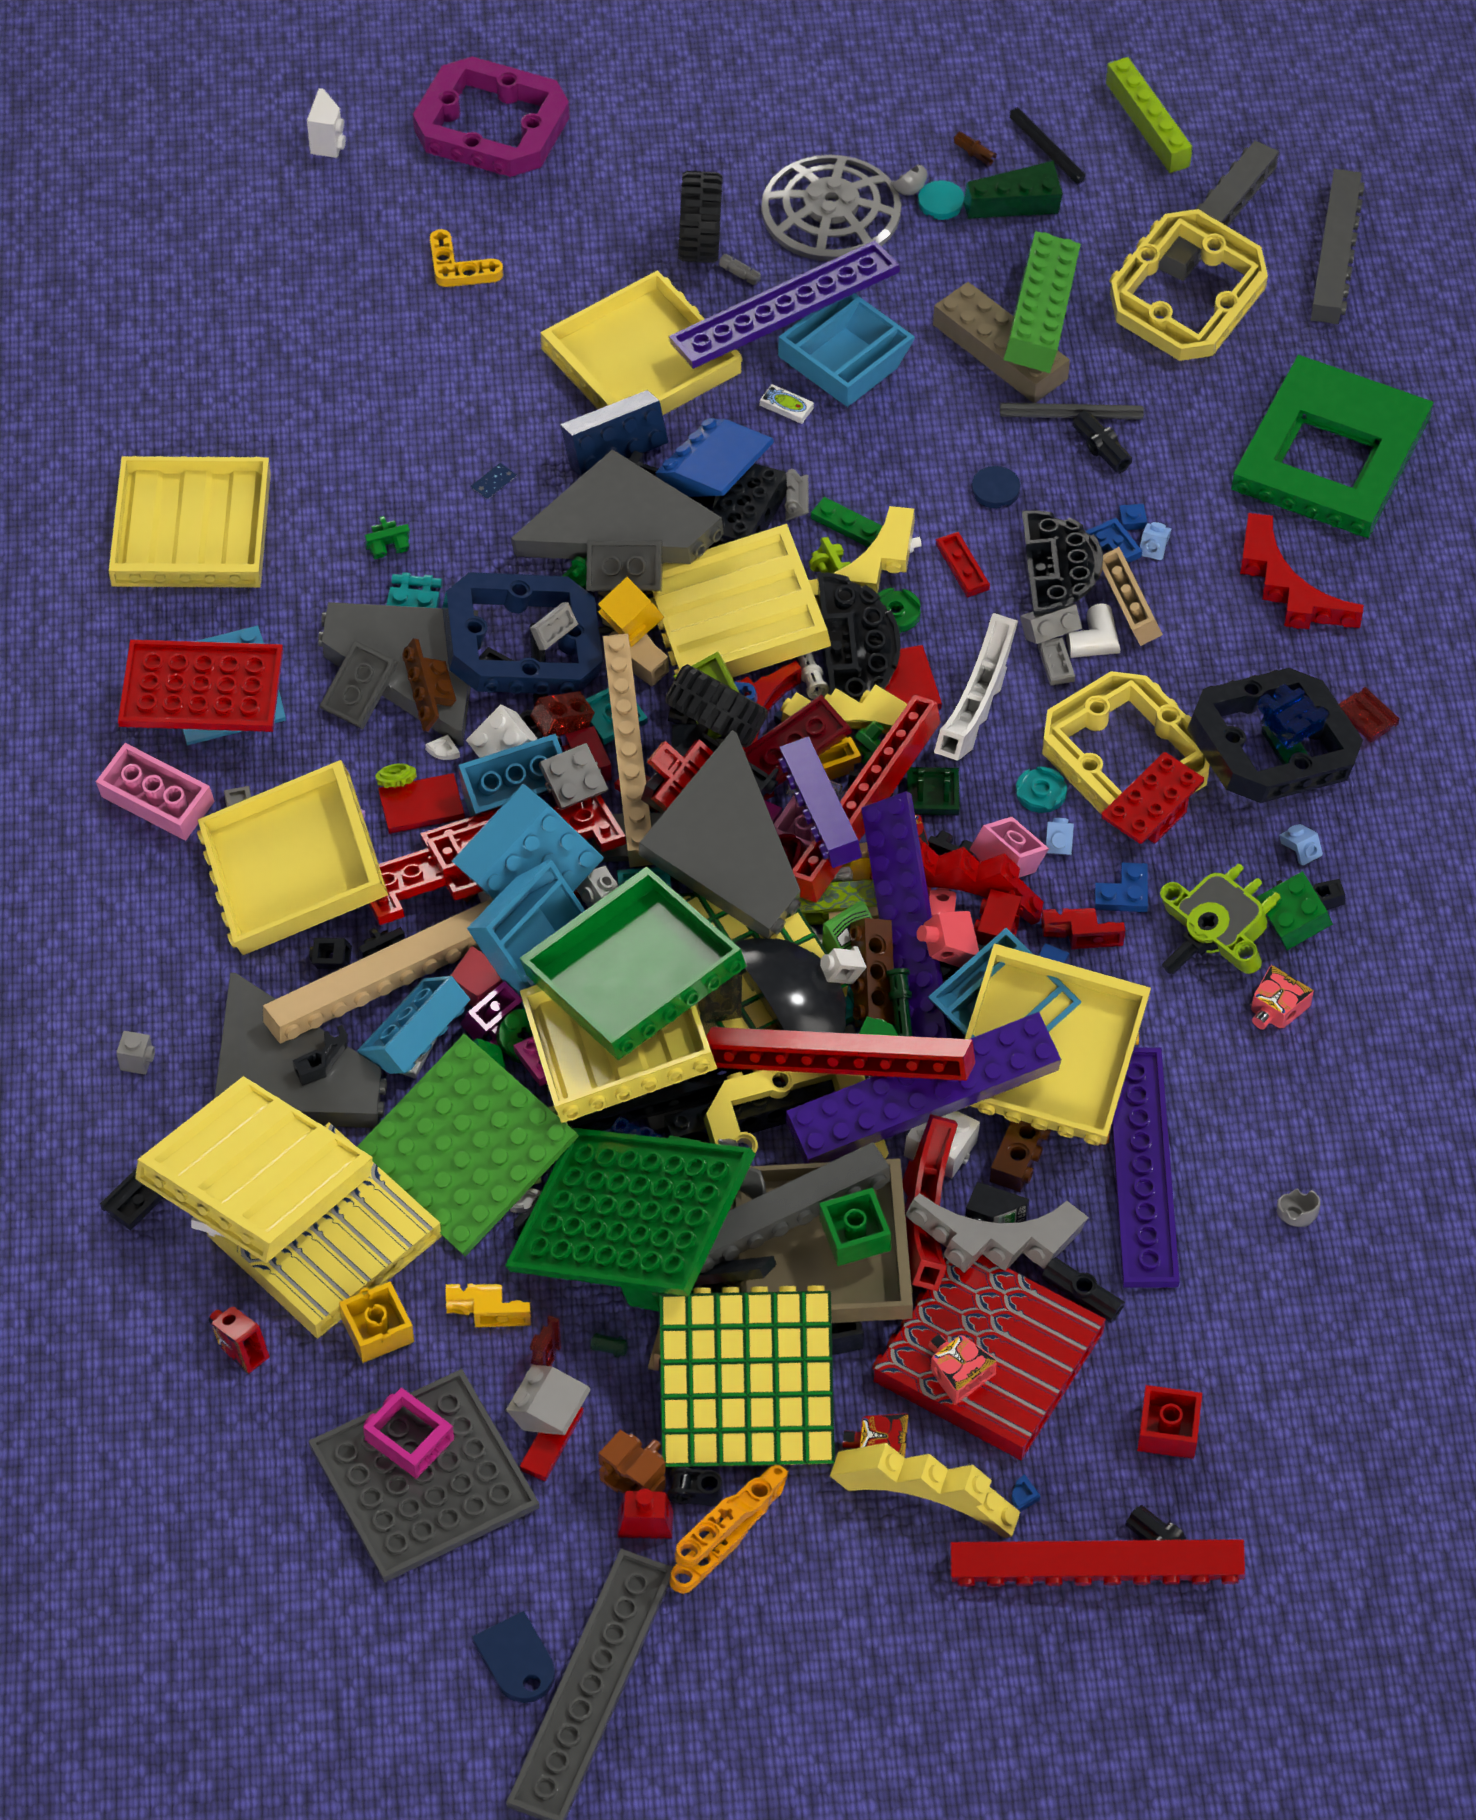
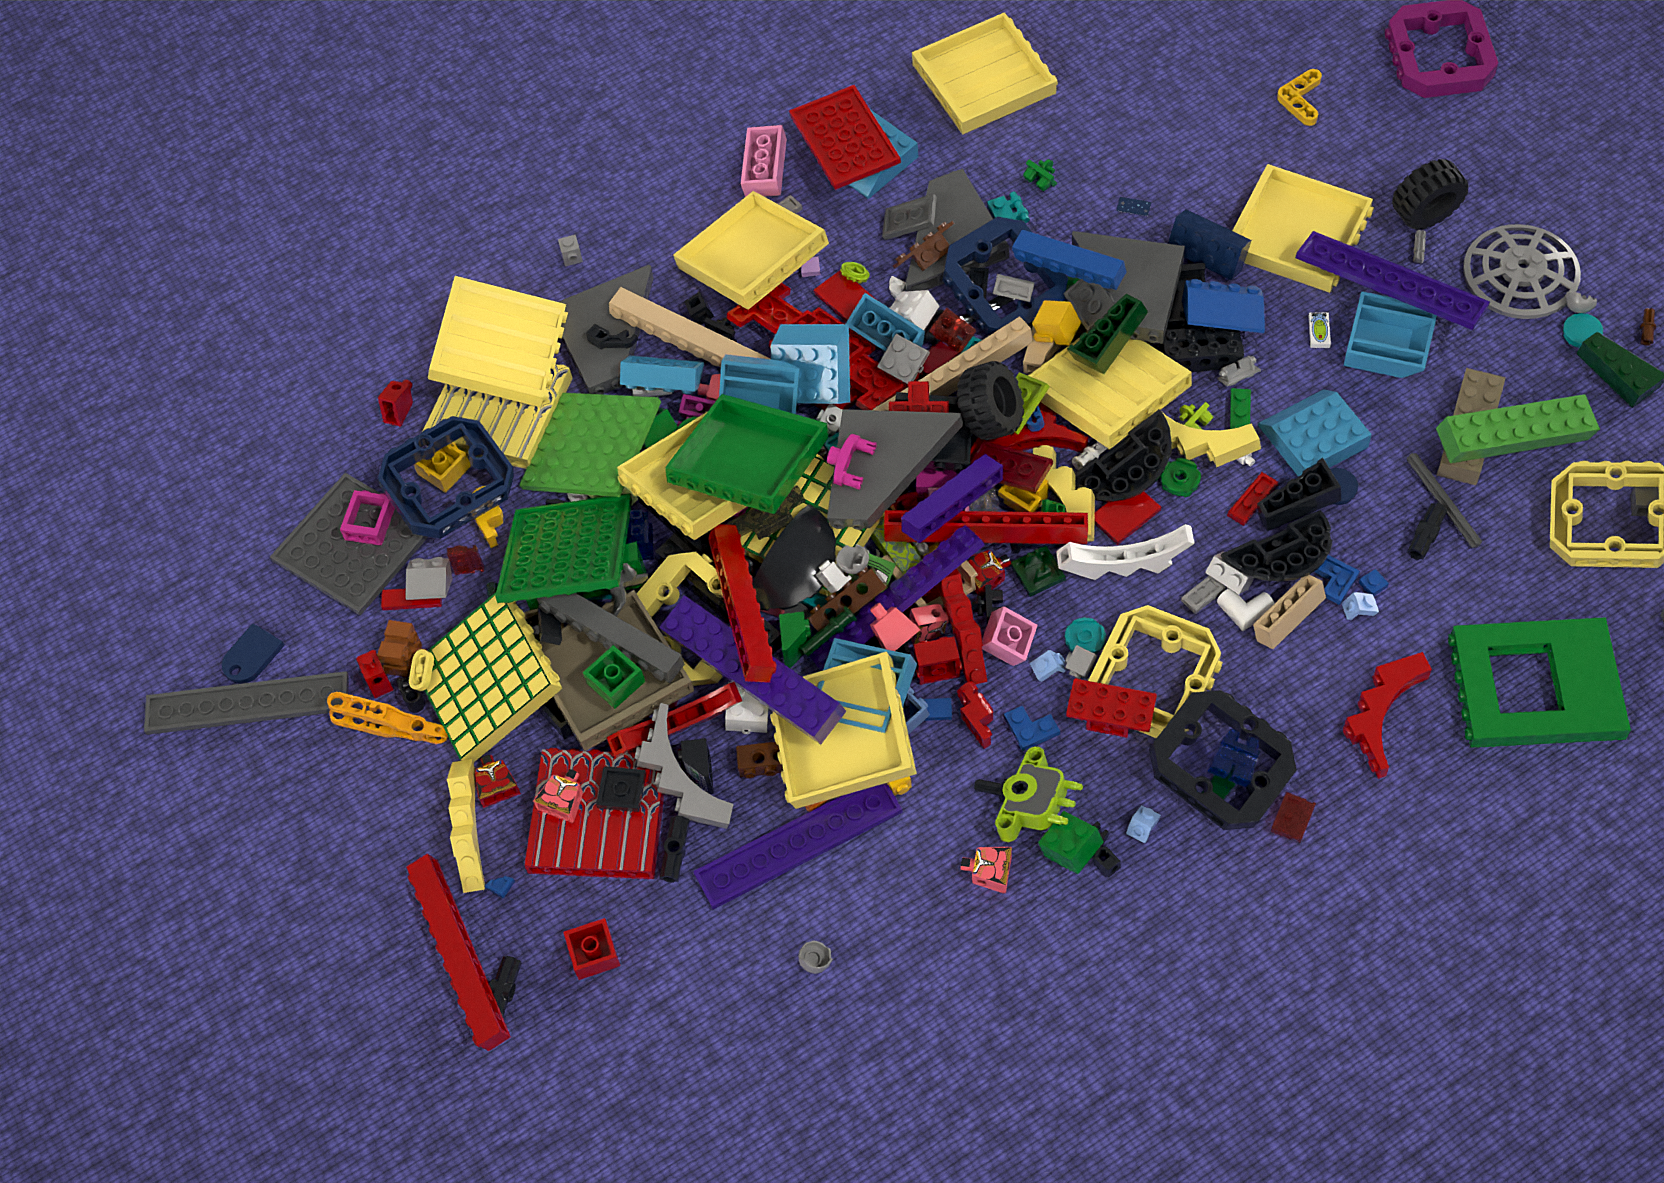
camera: 70 degrees right, 5 degrees up
(405, 1369) = (436, 438): none -> dark blue panel
(565, 551) = (1069, 259): none -> blue brick
(688, 1450) = (421, 670): none -> light yellow plate
(700, 574) = (1109, 335): none -> dark green wedge
(712, 870) = (842, 456): none -> dark pink connector
(840, 928) = (852, 559): none -> light grey hair
(918, 468) = (1316, 429): none -> dark azure slope
(985, 1301) = (621, 789): none -> black plate
(998, 507) = (1300, 496): none -> black wedge
(1077, 803) = (1080, 662): none -> light grey brick

